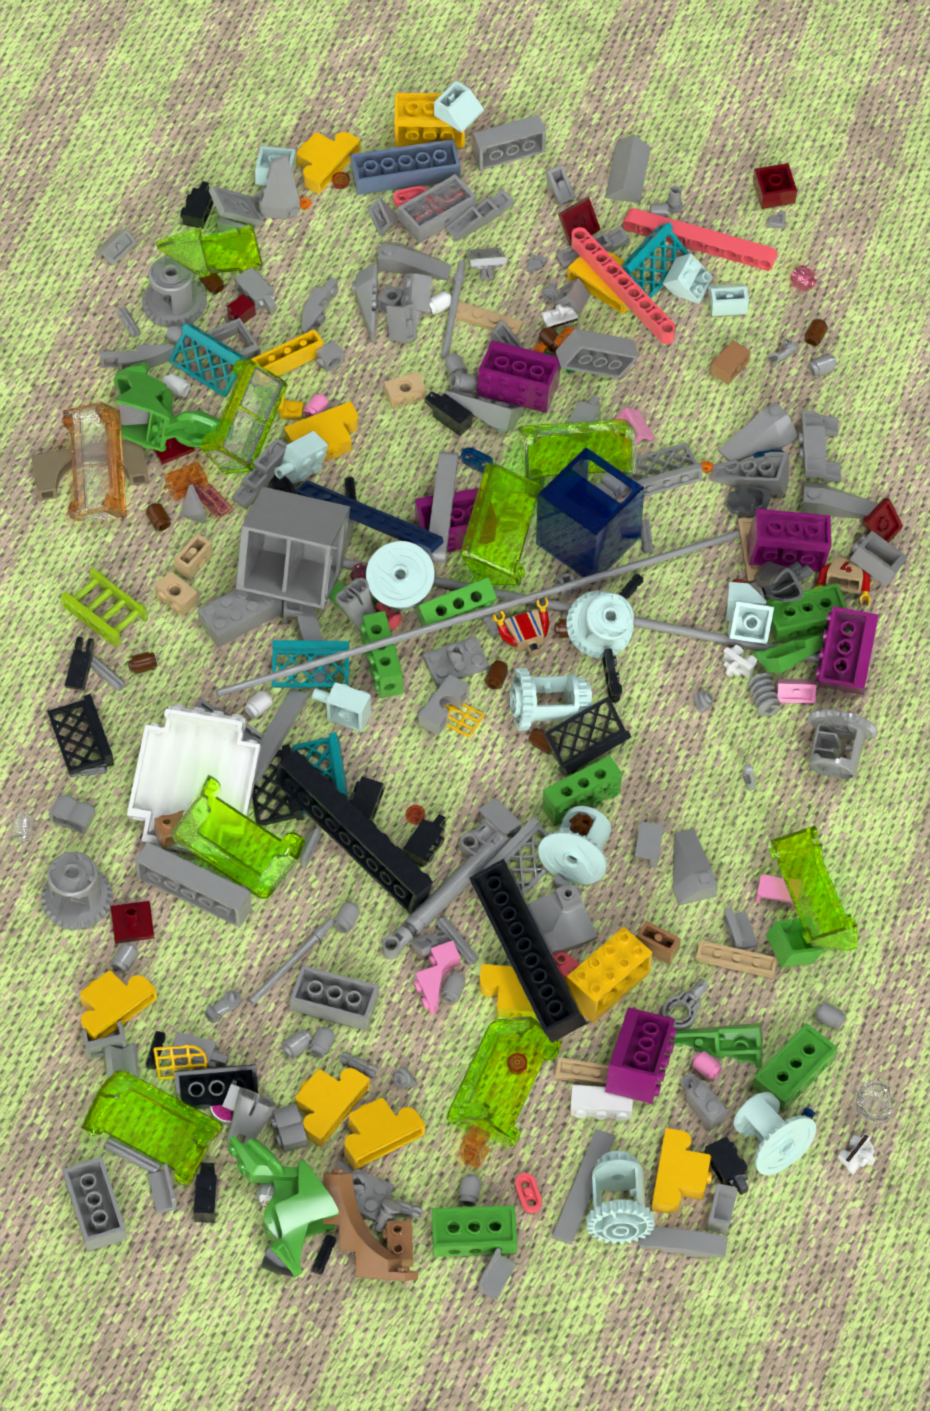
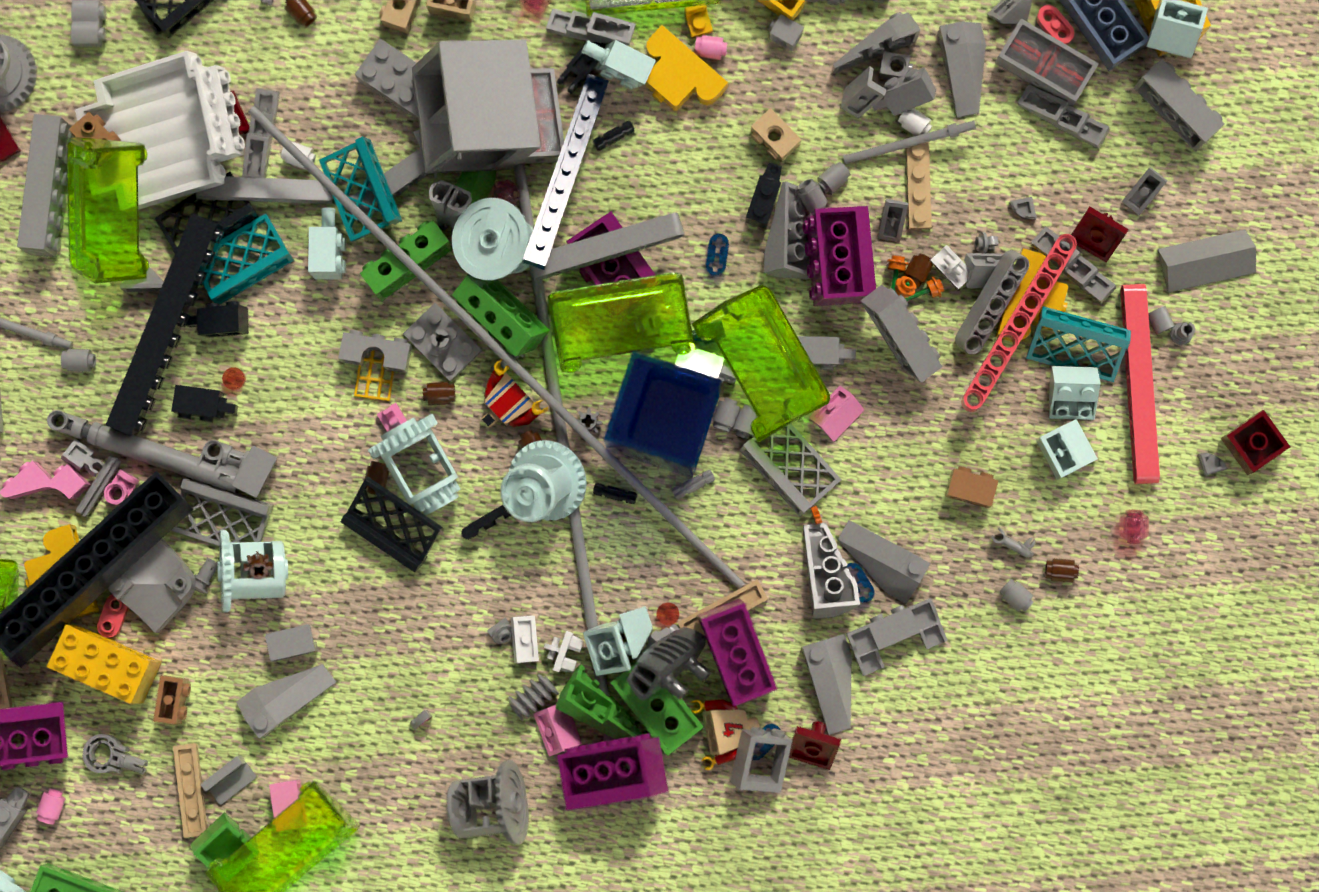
camera: 75 degrees right, 25 degrees up
(453, 987) = (38, 505): light grey brick -> none
(464, 917) = (123, 481): none -> bright pink piece
(485, 260) = (994, 148): light grey plate -> none
(500, 716) = (391, 417): none -> bright pink tile
(584, 788) = (289, 531): bright green brick -> none
(598, 298) = (992, 291): none -> light grey beam
(716, 685) = (524, 639): none -> white plate
(733, 1041) = (91, 821): bright green wedge -> none
(746, 502) = (781, 582): dark grey hair -> none

